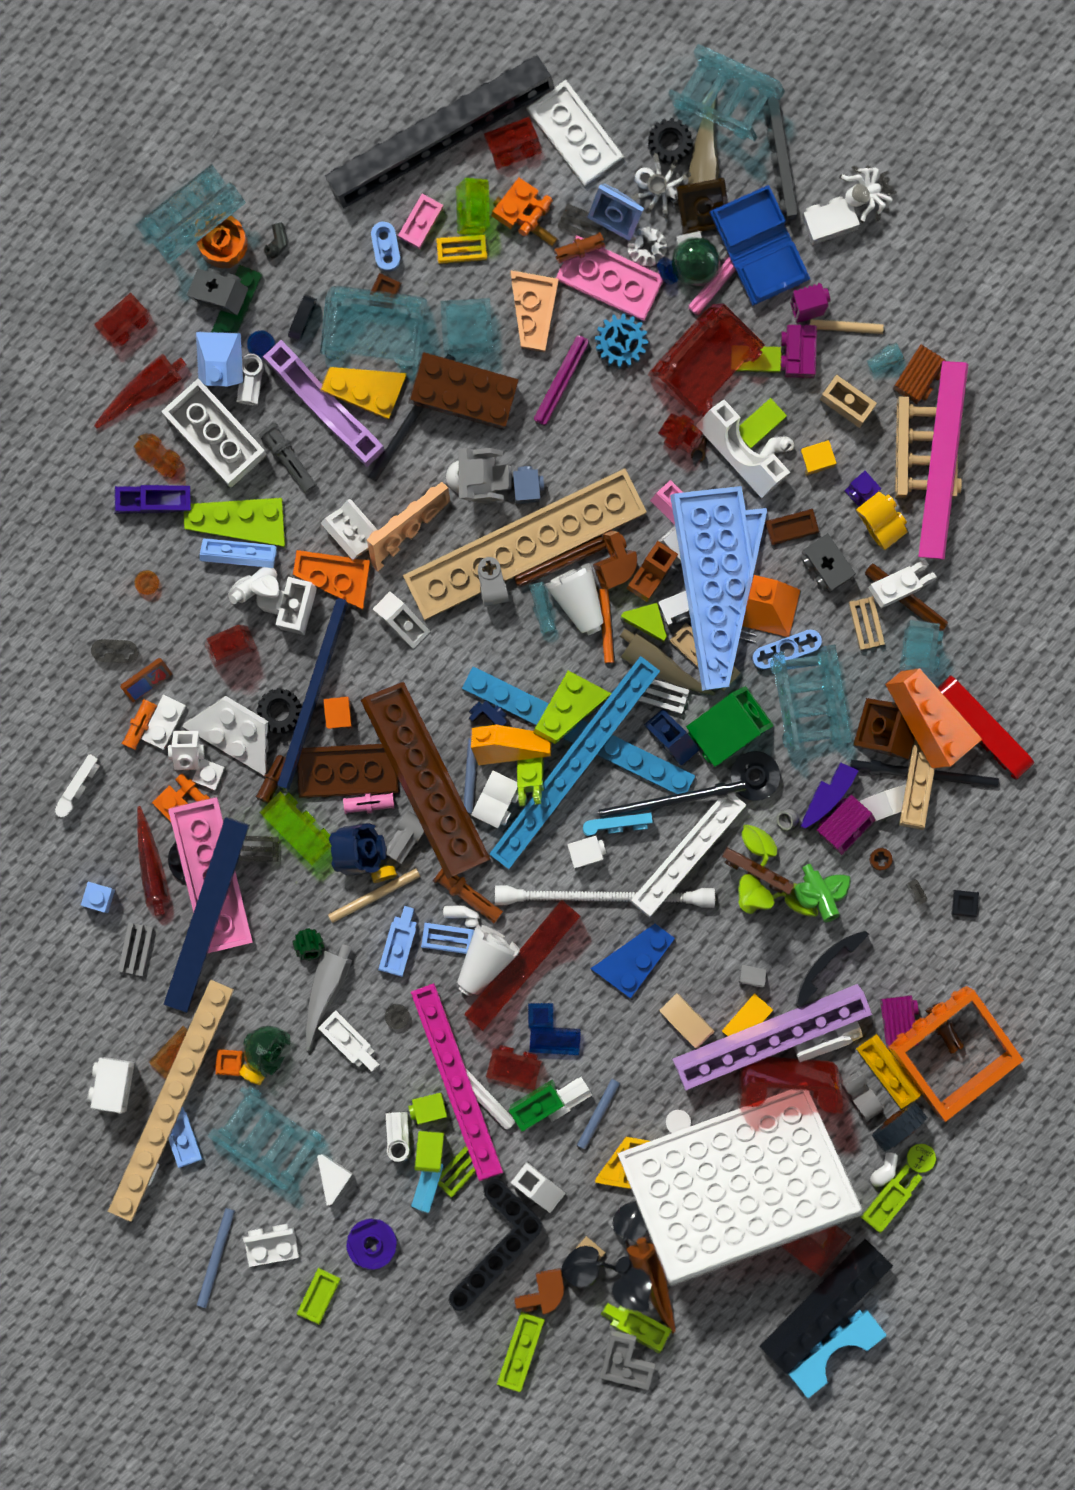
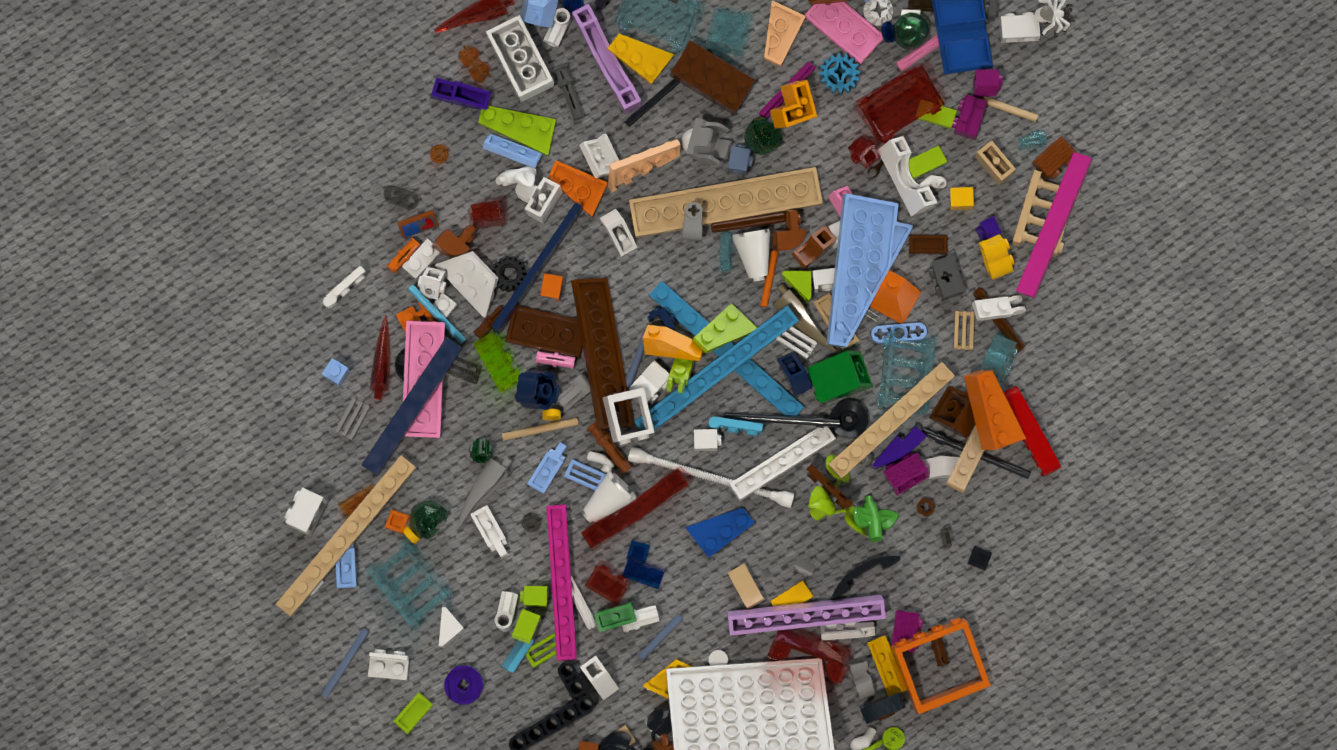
camera: 20 degrees right, 5 degrees down
(199, 695) = (454, 246): none -> dark orange brick
(202, 787) = (432, 309): none -> medium azure bar
(452, 841) = (613, 421): none -> white window
(548, 448) = (762, 136): none -> clear green cylinder
(581, 396) = (797, 107): none -> light orange brick
(810, 764) = (891, 420): none -> tan plate

